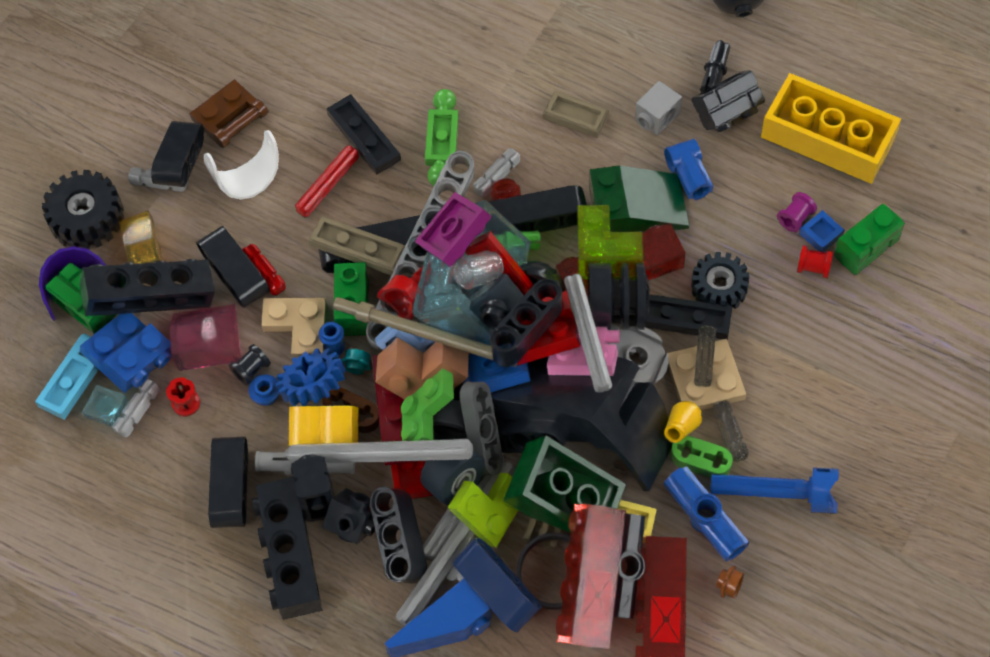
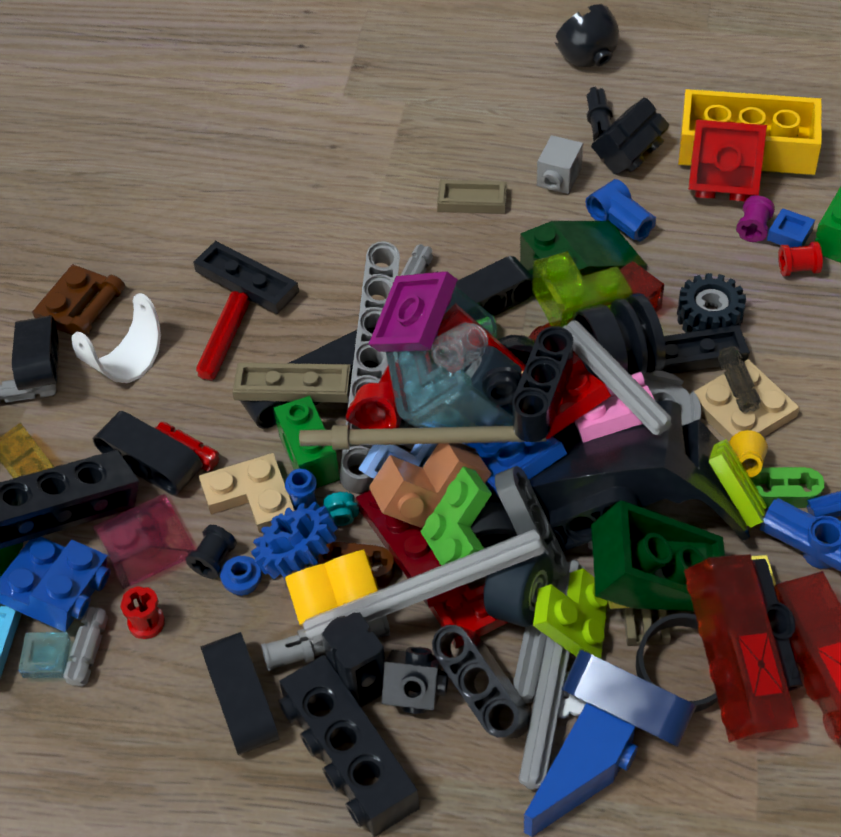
camera: 20 degrees left, 10 degrees down
(441, 133) = (336, 256): bright green plate -> none
(656, 445) = (737, 483): none -> lime tile
(730, 430) = (800, 449): clear smoke axle -> none
(792, 152) = (727, 159): none -> red plate

